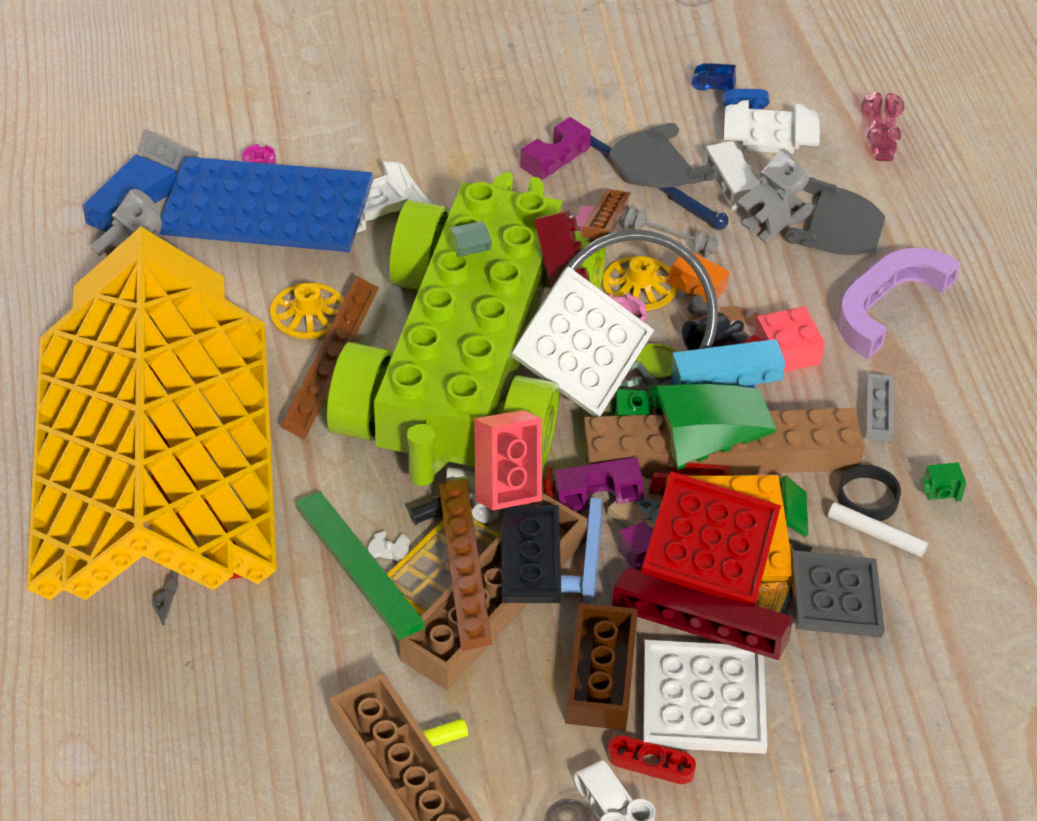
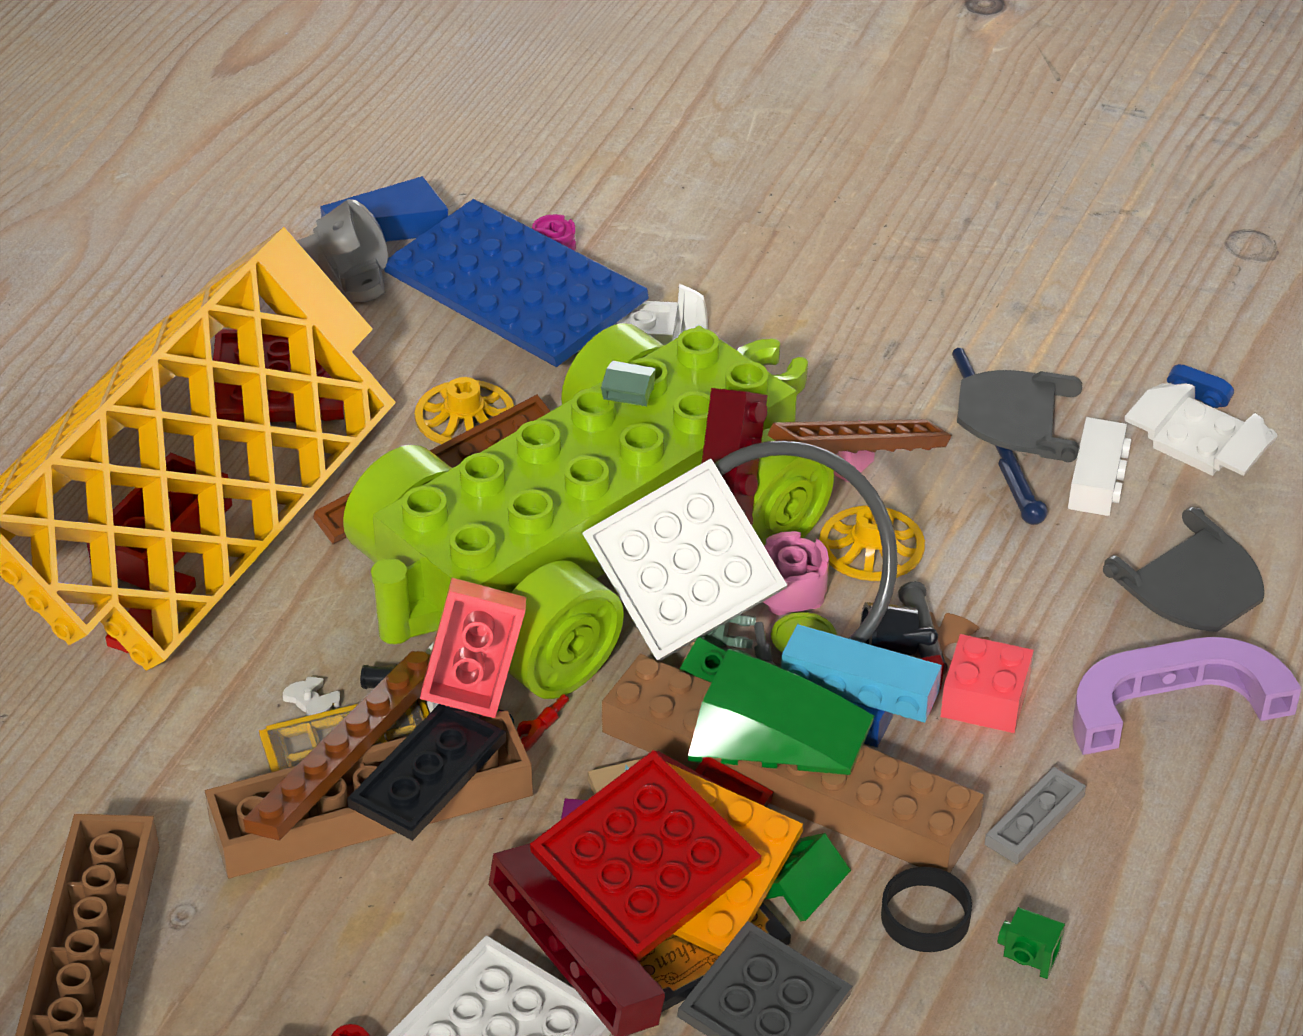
camera: 35 degrees right, 5 degrees down
(164, 150) = (466, 183): light grey panel -> none
(166, 597) = (37, 641): dark grey hand -> none
(360, 566) = (245, 698): green tile -> none
(446, 732) = (175, 921): neon yellow hinge -> none
(544, 159) = (881, 358): magenta arch -> none
(587, 583) = (515, 813): light blue piece -> none
(602, 666) = (407, 938): reddish brown brick -> none
(617, 477) = (571, 727): magenta arch -> none
(686, 280) = (940, 563): orange brick -> none
(700, 242) = (985, 526): light grey axle -> none
(714, 76) = (1184, 346): clear blue leg -> none
(775, 197) = (1120, 508): light grey piece -> none
(878, 529) = (897, 958): white piece -> none

